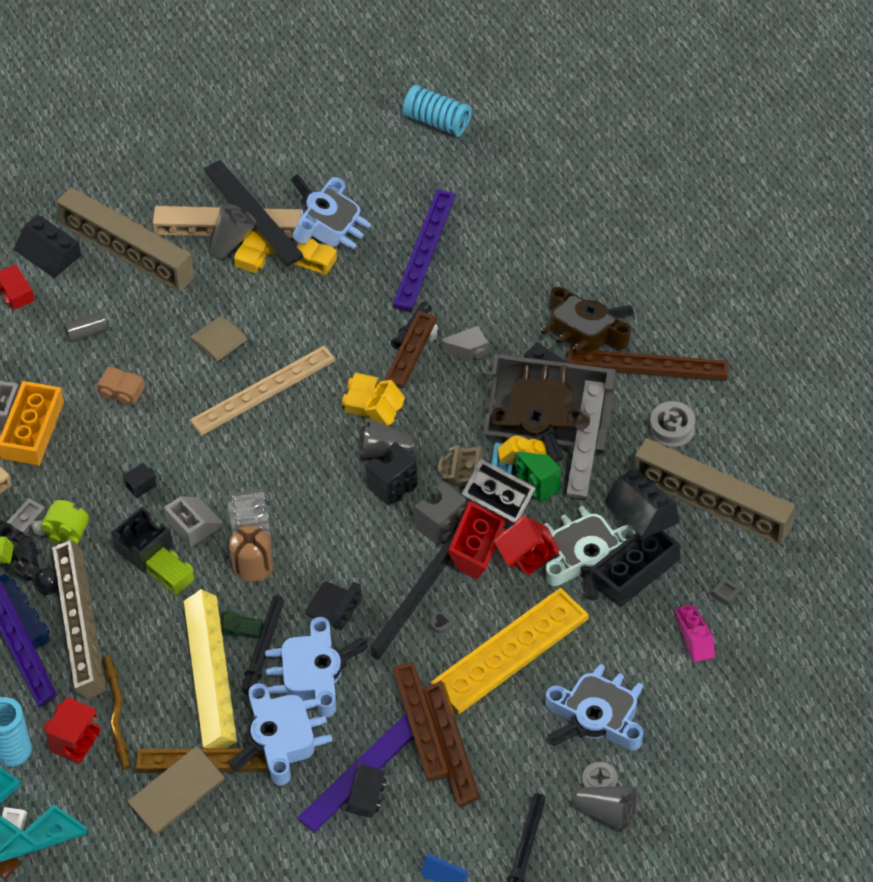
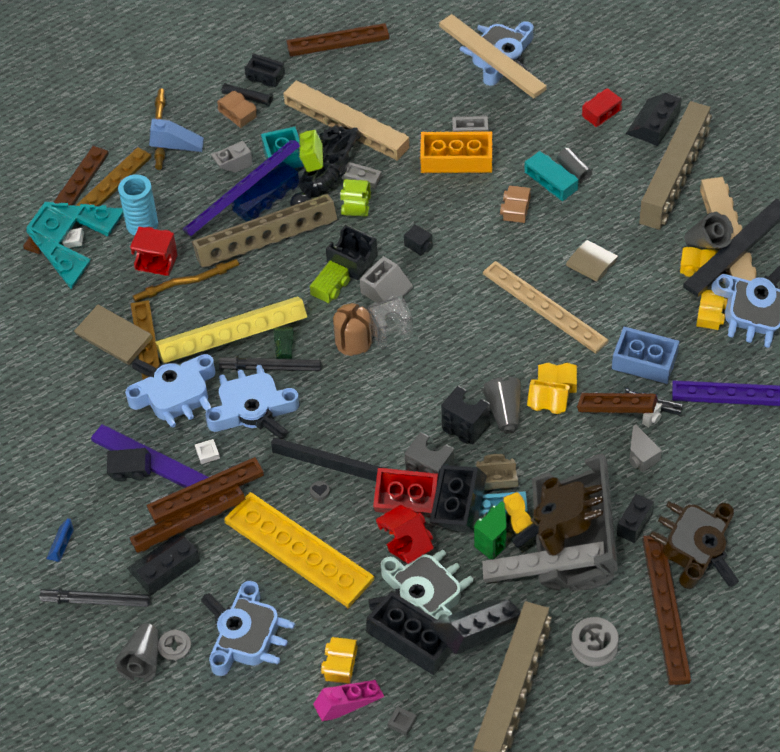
camera: 80 degrees right, 0 degrees up
(93, 348) = (551, 175): none -> teal brick
(335, 603) = (320, 406): black bracket -> none
(358, 316) = (645, 355): none -> medium blue brick
(364, 718) = (207, 451): none -> white plate
(499, 774) = (165, 563): none -> black slope
(650, 631) = (340, 660): none -> yellow brick

